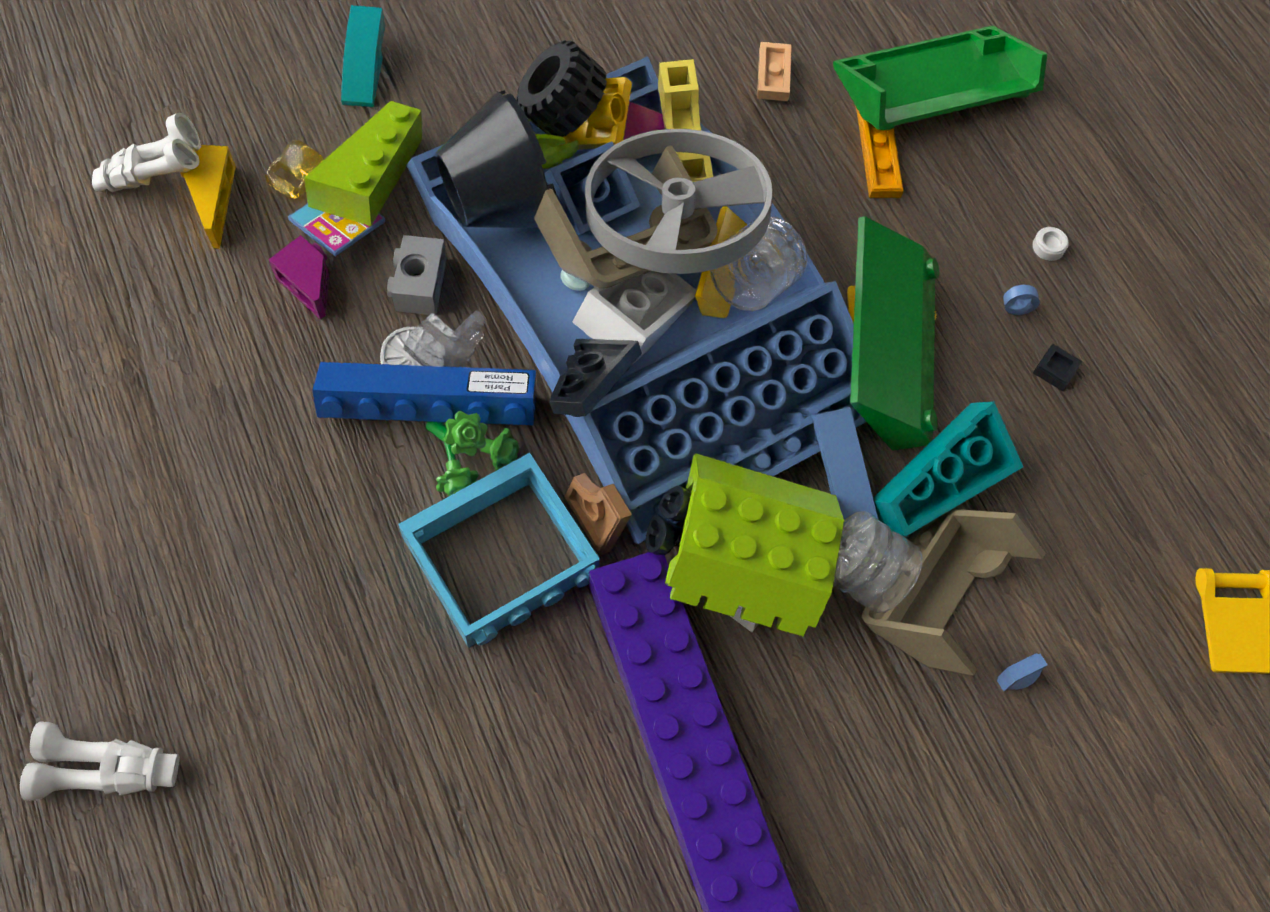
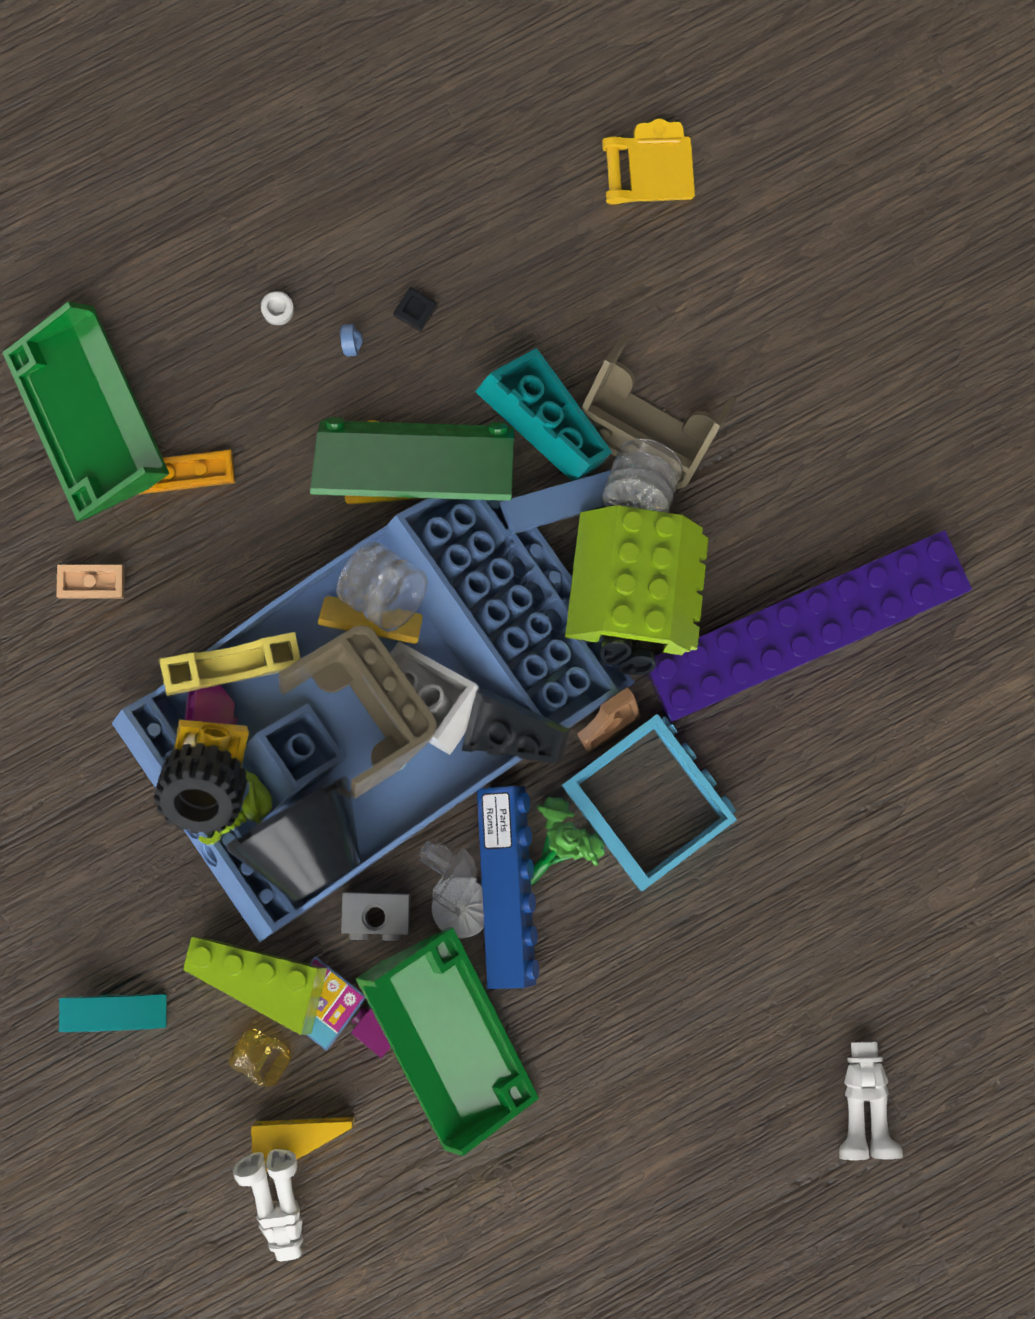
camera: 90 degrees left, 20 degrees up
(272, 320) = (448, 1040): none -> green slope
(680, 199) = (341, 661): light grey piece -> none
(1022, 673) = (716, 357): medium blue tile -> none

